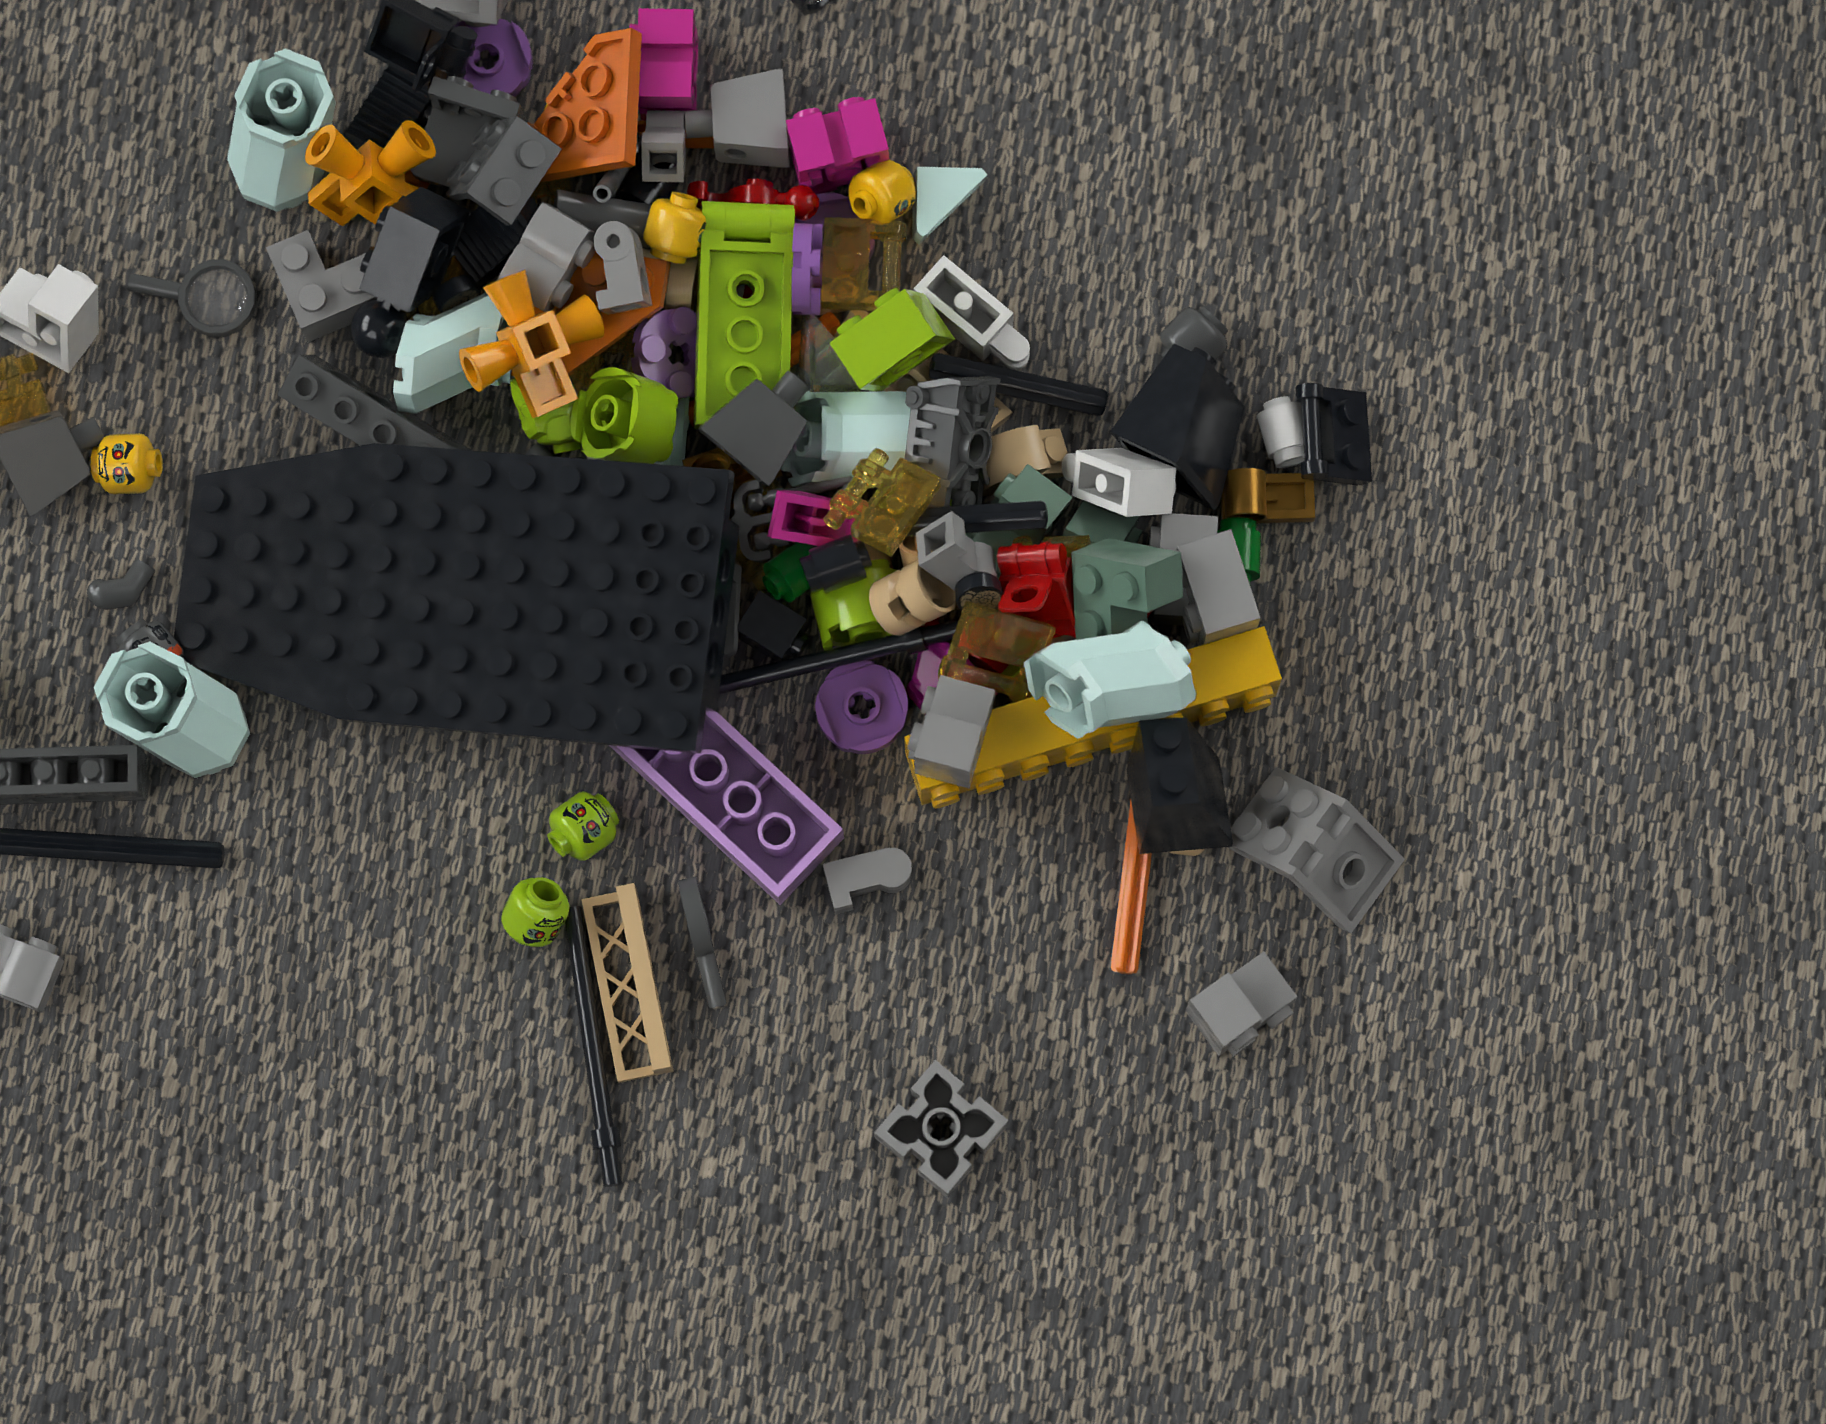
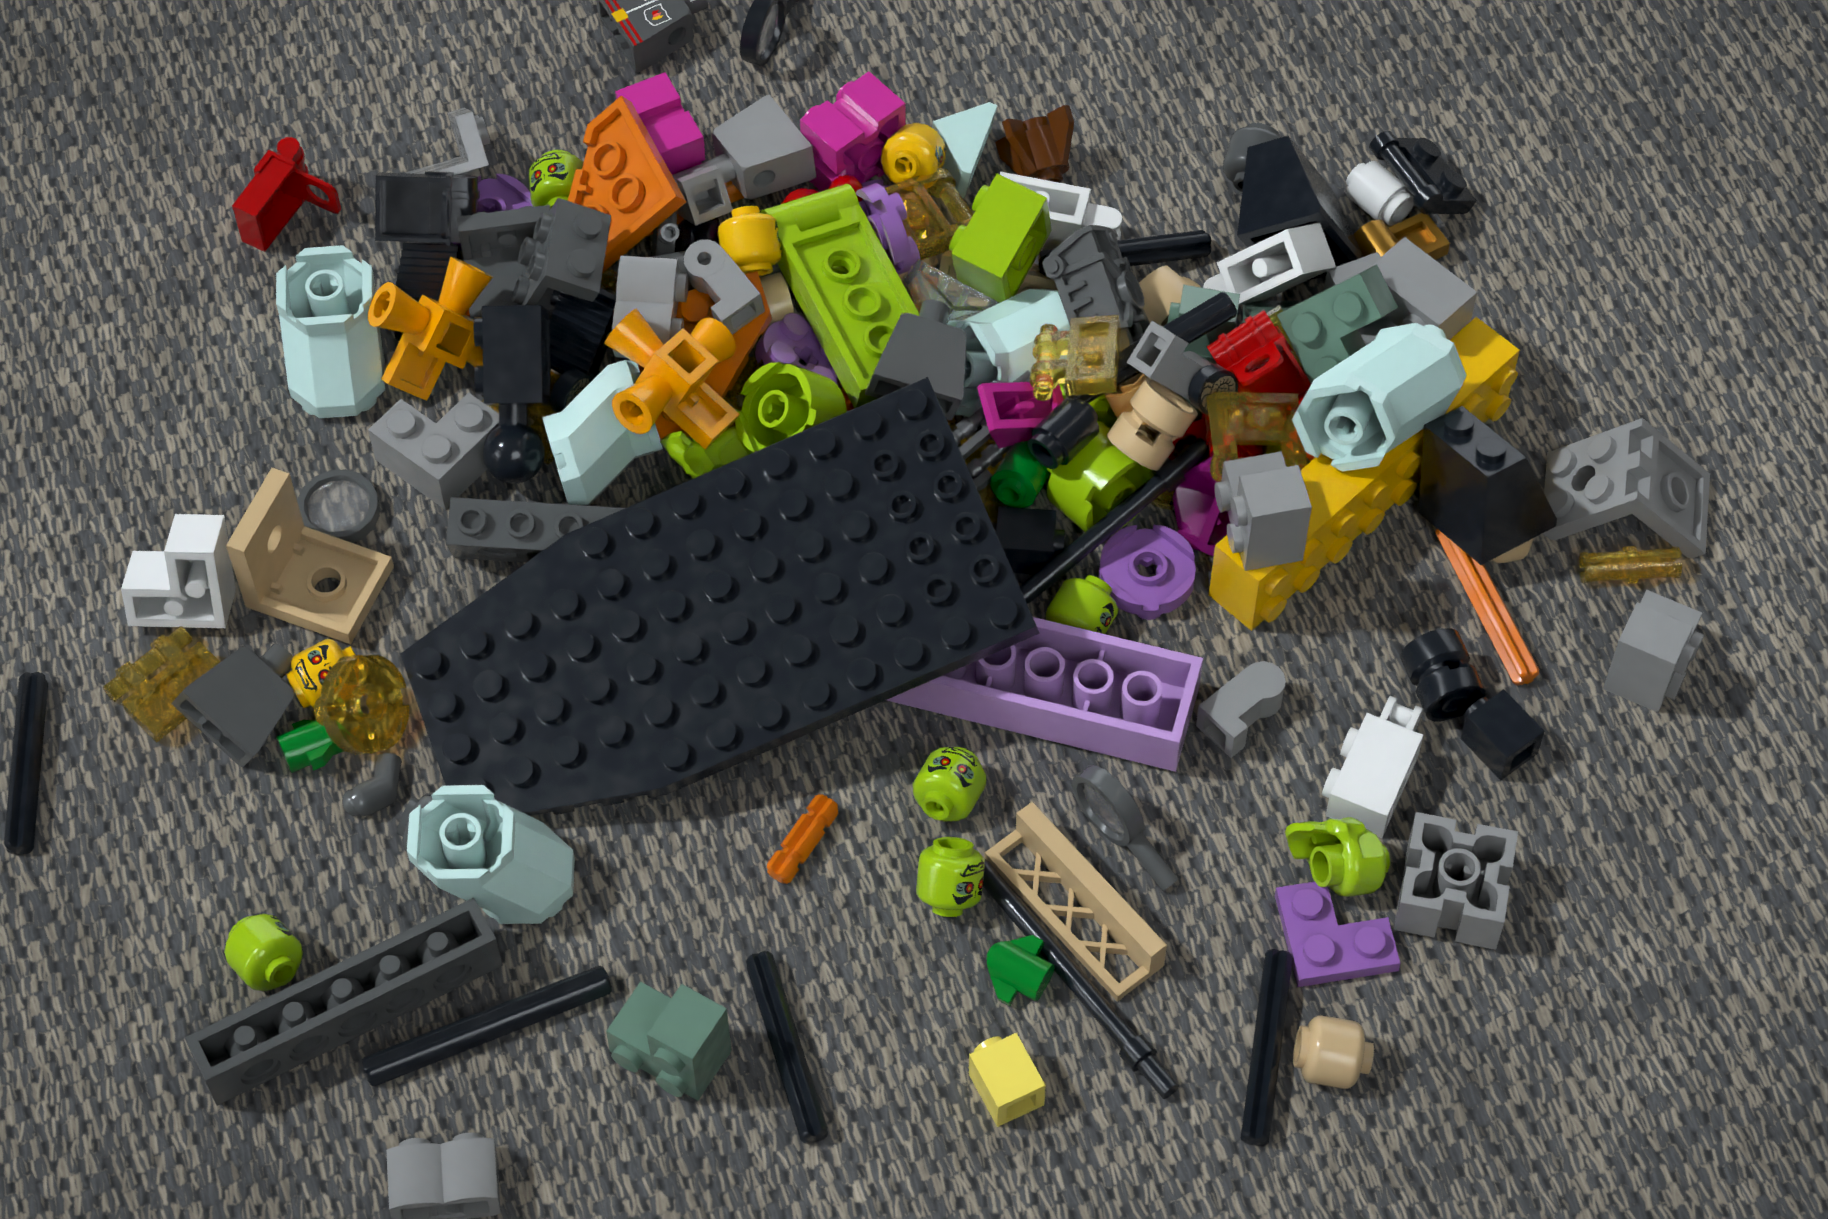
camera: 30 degrees left, 20 degrees down
(87, 520) = (307, 746): none -> green piece
(124, 497) = (341, 710): none -> clear yellow plate
(142, 334) = (283, 561): none -> tan bracket
(237, 939) = (671, 1038): none -> sand green brick
(332, 988) = (787, 1047): none -> black axle
(441, 810) = (802, 839): none -> orange axle
(486, 1107) = (1006, 1078): none -> light yellow brick
(549, 1017) = (1017, 968): none -> green piece
(554, 55) = (552, 177): none -> lime head
(712, 1186) = (1266, 1047): none -> black axle
(756, 1222) = (1332, 1052): none -> tan head
(781, 721) = (1084, 604): none -> lime head
(806, 1121) = (1328, 950): none -> medium lavender plate
(863, 1058) = (1340, 854): none -> lime head
(942, 990) = (1375, 767): none -> white brick
(1004, 234) = (1038, 145): none -> reddish brown brick
(1047, 920) = (1442, 674): none -> black wheel
(1065, 1013) = (1501, 733): none -> black brick
(1278, 911) = (1630, 565): none -> clear yellow pin

